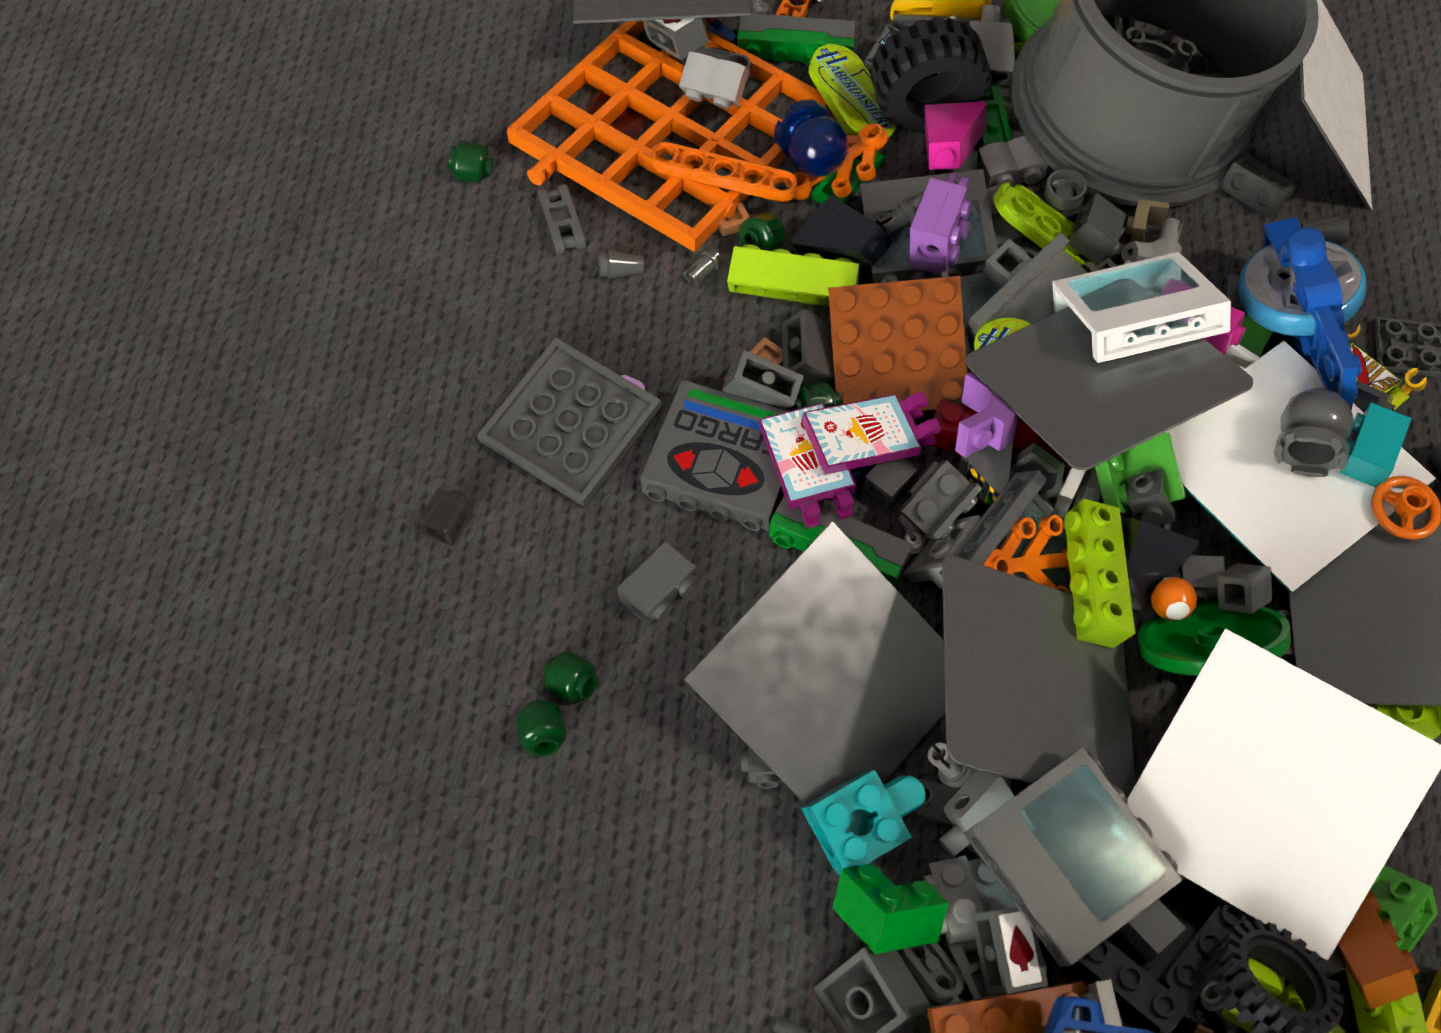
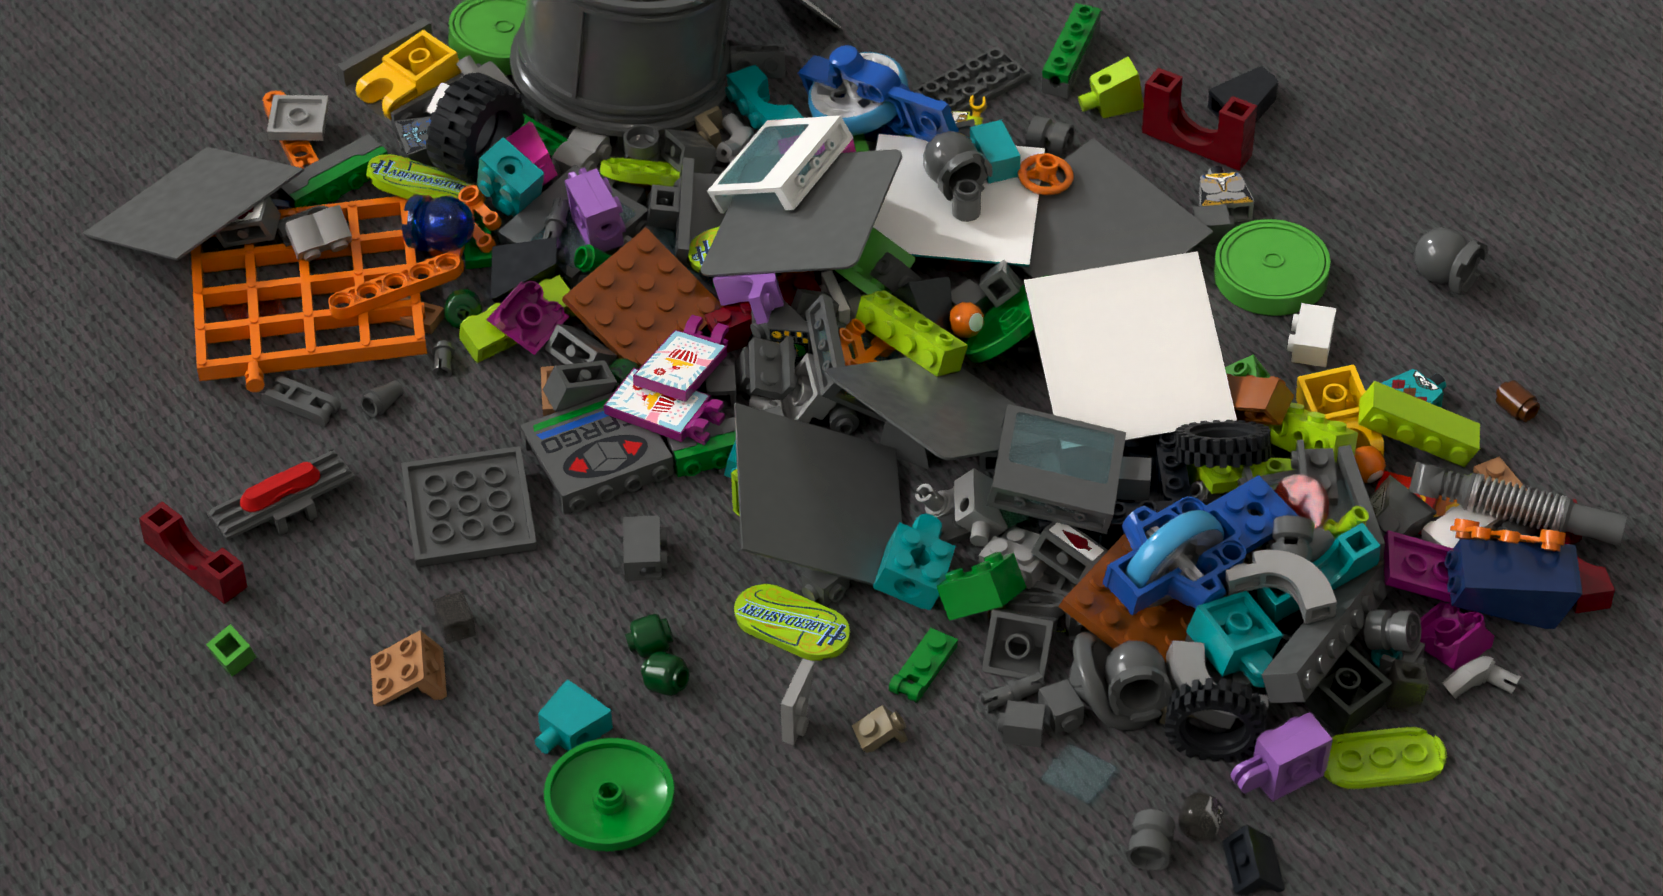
camera: 45 degrees left, 15 degrees down
(256, 400) = (231, 650): none -> bright green brick
(329, 315) = (169, 536): none -> dark red arch
(360, 811) = (609, 794): none -> green dish
(364, 537) = (408, 665): none -> medium nougat bracket
(420, 702) = (571, 719): none -> teal torso
(446, 292) = (281, 496): none -> dark grey piece
(470, 161) = (187, 411): dark green head -> none
(599, 872) = (795, 703): none -> light grey wing
(654, 965) = (879, 728): none -> dark tan bracket
(703, 774) = (792, 622): none -> lime tile
(766, 931) = (923, 665): none -> green plate
(790, 283) = (528, 316): none -> magenta slope
(899, 268) = (589, 258): none -> green cone
(905, 140) = (509, 178): none -> teal brick
(1217, 212) = (750, 93): none -> teal arch
(1292, 477) = (966, 200): none -> dark grey brick

